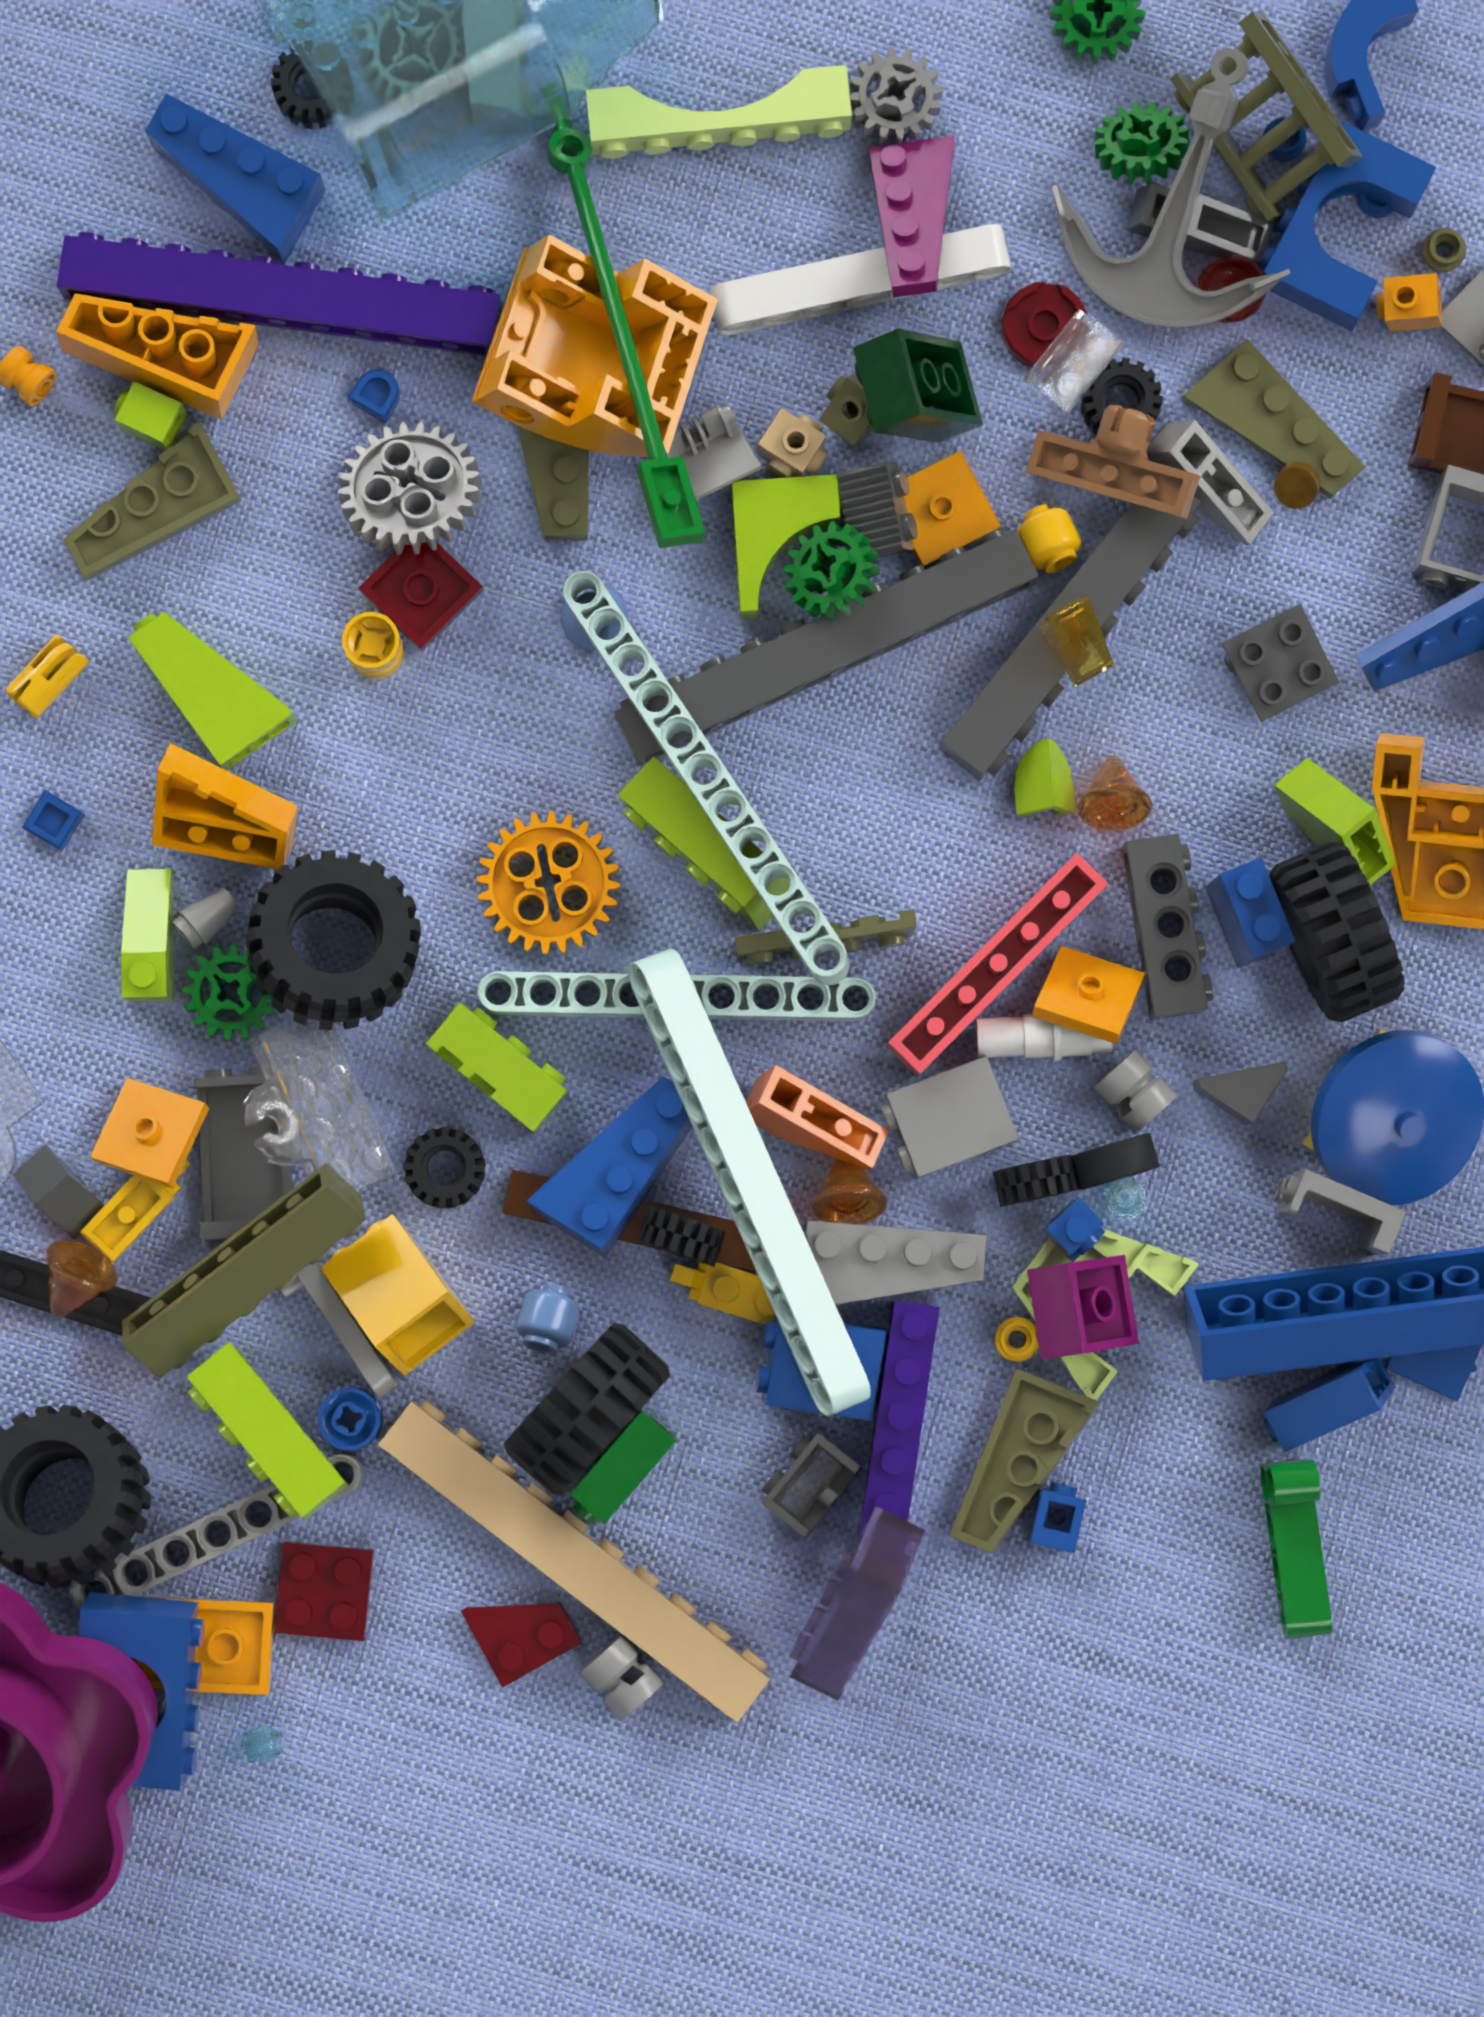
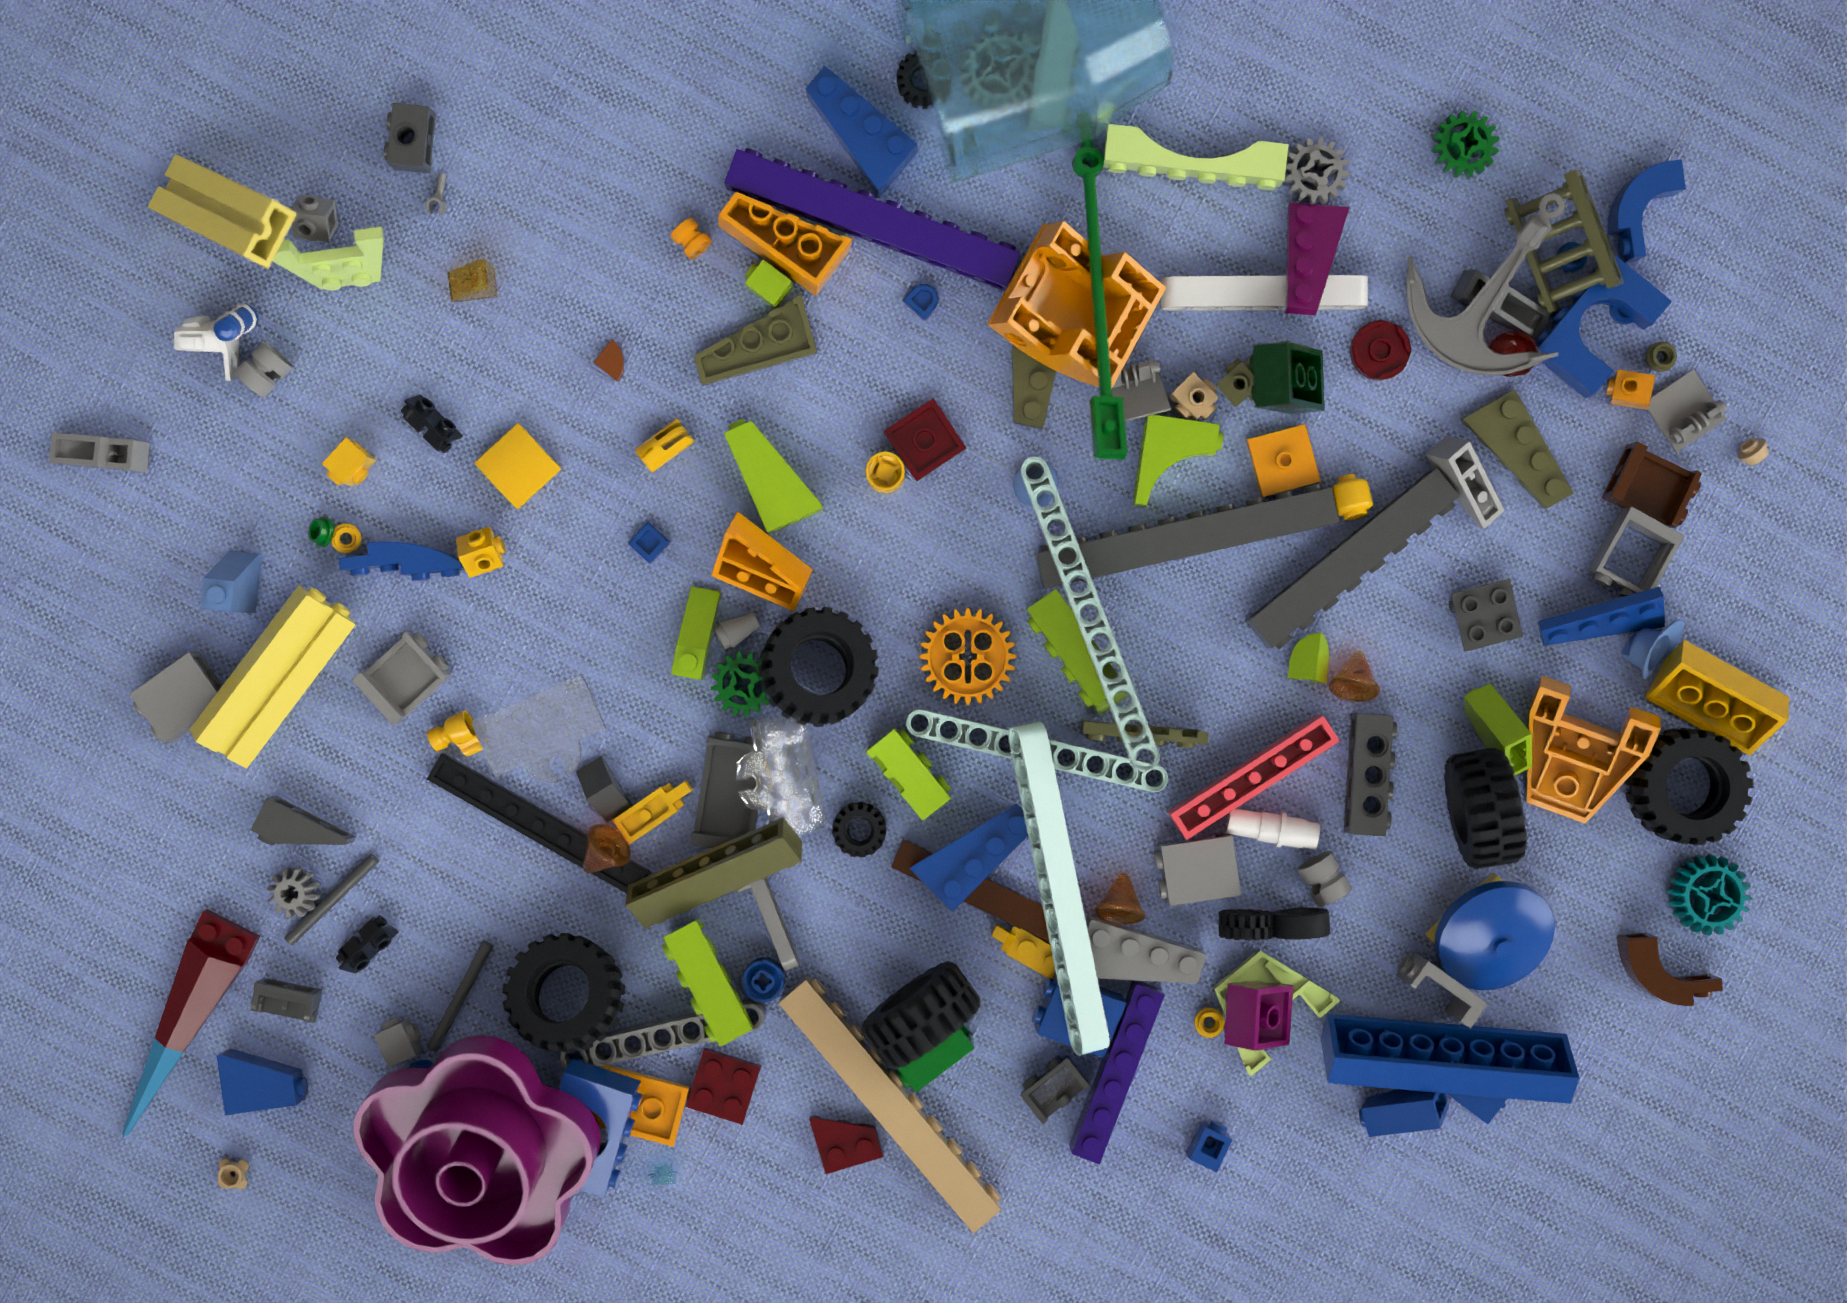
camera: 20 degrees right, 5 degrees up
(149, 1132) = (671, 765): light orange plate -> none
(397, 1295) = (810, 906): yellow slope -> none
(409, 488) = (948, 352): light grey gear -> none
(547, 1319) = (906, 943): medium blue head -> none
(609, 1665) = (902, 1175): light grey wheel -> none
(681, 1236) = (1006, 912): black tyre -> none
(813, 1119) = (1108, 851): orange slope -> none
(848, 573) = (1213, 496): green gear -> none
(855, 1603) = (1069, 1177): clear purple wedge -> none
(877, 506) = (1240, 454): dark grey brick -> none
(1021, 1452) = (1197, 1096): olive wing -> none
(1073, 361) = (1396, 381): clear brick -> none
(1075, 1229) = (1264, 962): blue brick -> none
(1078, 640) = (1357, 574): clear yellow slope -> none
(1088, 995) = (1309, 809): light orange plate -> none
(1116, 464) = (1409, 459): medium nougat plate -> none
(1121, 374) = (1438, 413): black tyre -> none
(1131, 1207) = (1303, 953): clear light blue plate -> none
(1141, 142) = (1475, 240): green gear -> none
(1242, 1091) = (1396, 894): dark grey slope -> none
(1249, 913) = (1428, 781): blue brick -> none
(1296, 1546) = (1363, 1171): green beam -> none
(1297, 485) = (1525, 496): pearl gold tile -> none

